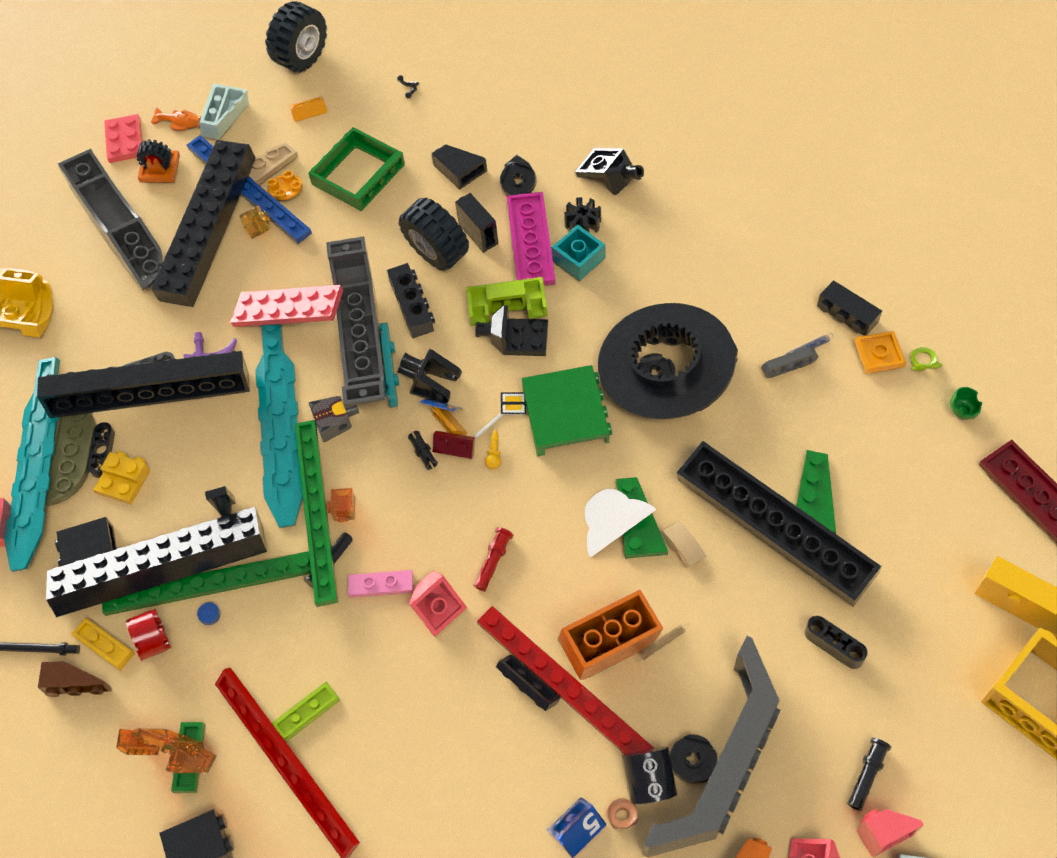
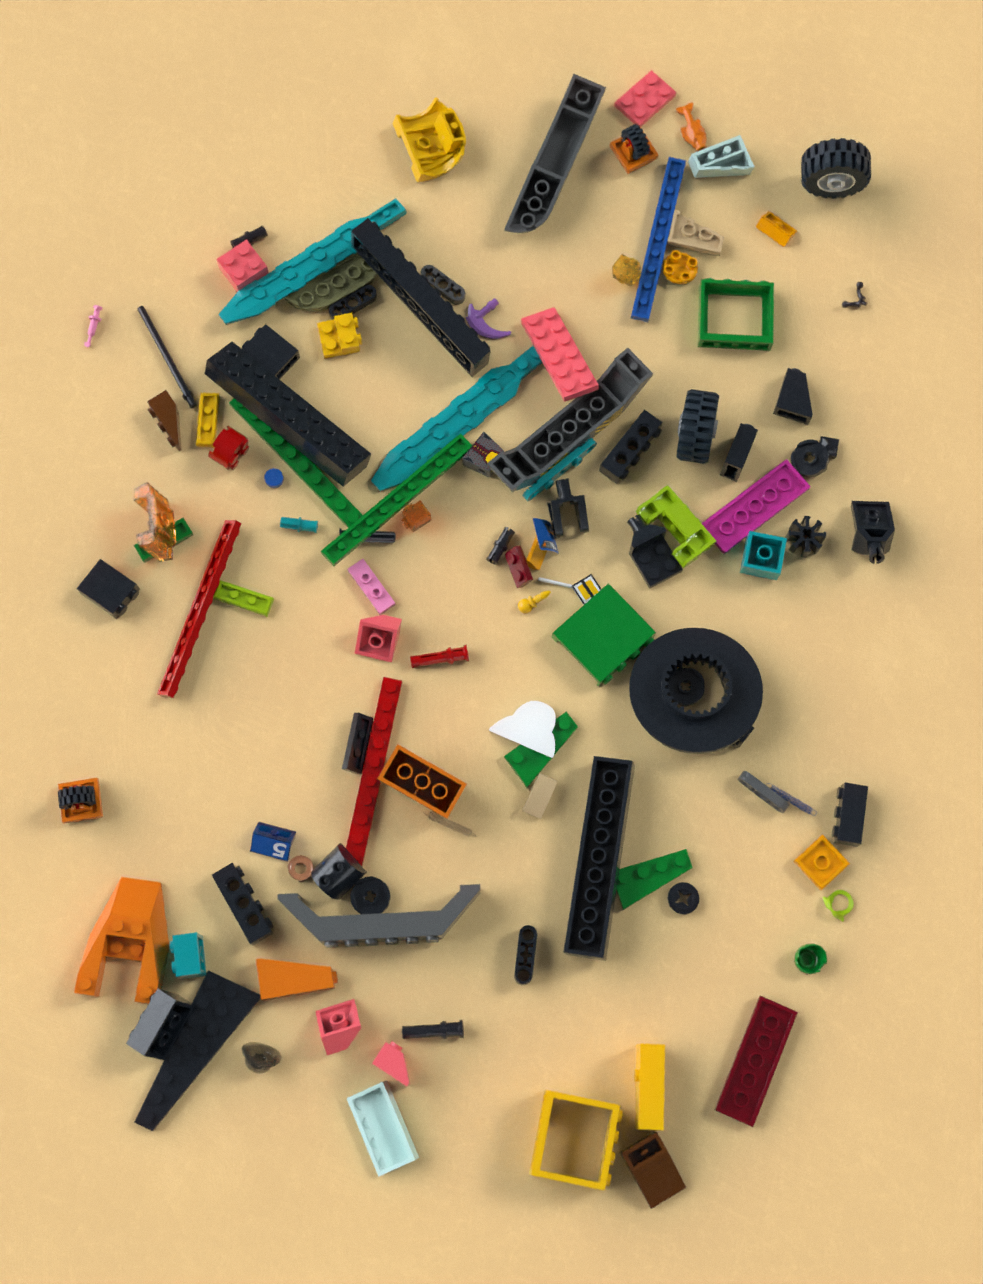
camera: 50 degrees right, 15 degrees up
(204, 223) = (599, 230): black brick -> none
(221, 500) = (360, 426): black tile -> none
(271, 615) = (299, 524): none -> teal axle
(858, 471) = (685, 889): none -> black gear

